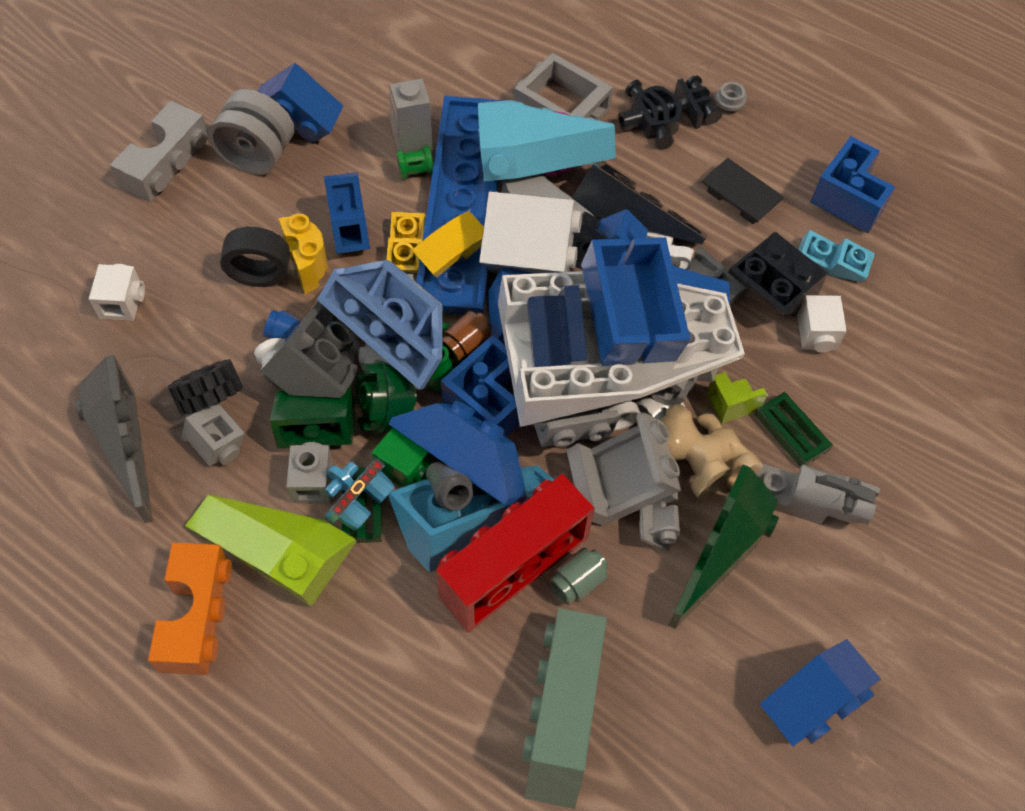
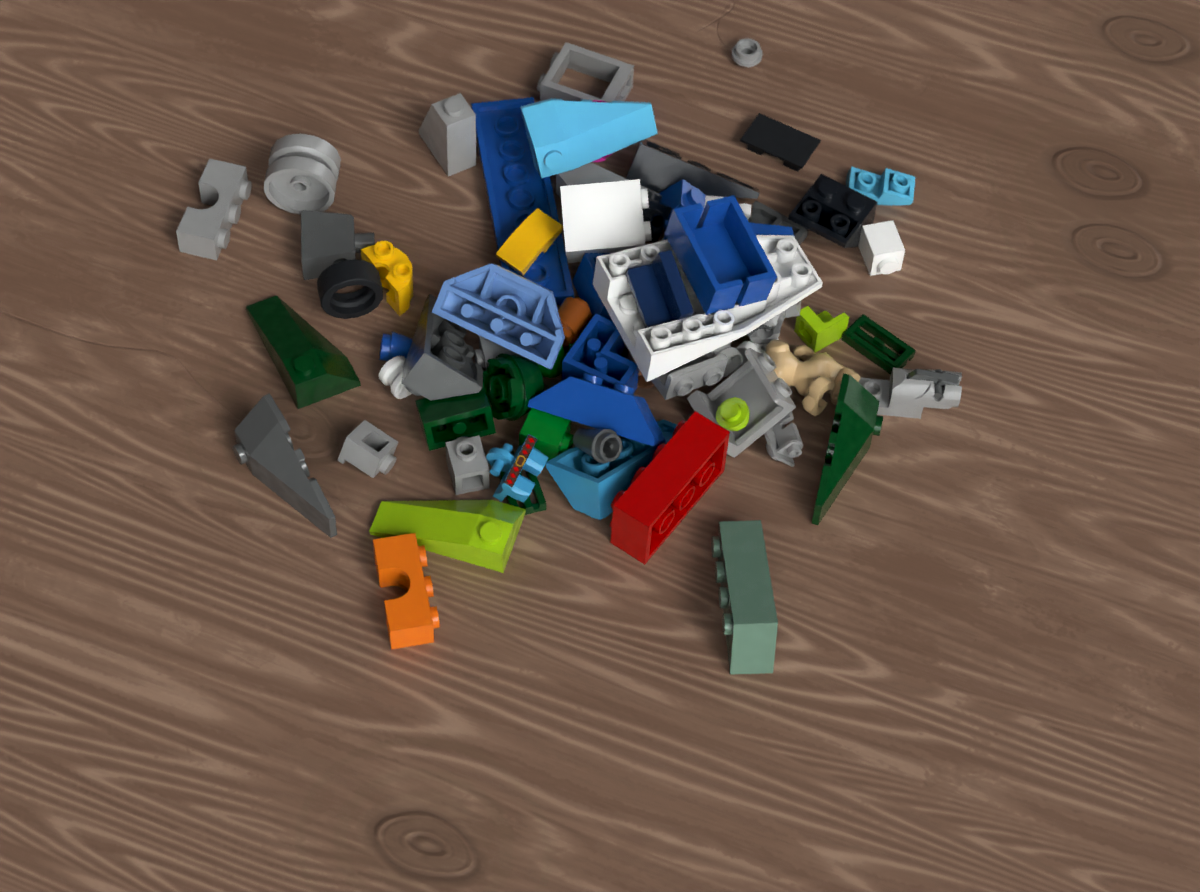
camera: 15 degrees left, 5 degrees down
(116, 292) = (228, 347): white brick -> none
(189, 316) = (303, 357): none -> dark green wedge
(205, 387) = (349, 409): black tyre -> none
(257, 202) = (328, 240): none -> dark grey torso
(305, 100) = (344, 131): blue brick -> none
(347, 212) = (418, 235): blue brick -> none
(405, 235) = (478, 244): yellow slope -> none
(413, 156) = (455, 174): green bush -> none
(579, 575) = (726, 497): sand green brick -> none
(609, 481) = (733, 414): none -> lime plate
(660, 103) = (676, 76): black piece -> none
(828, 685) = (946, 537): blue brick -> none
(850, 189) = (879, 122): blue brick -> none

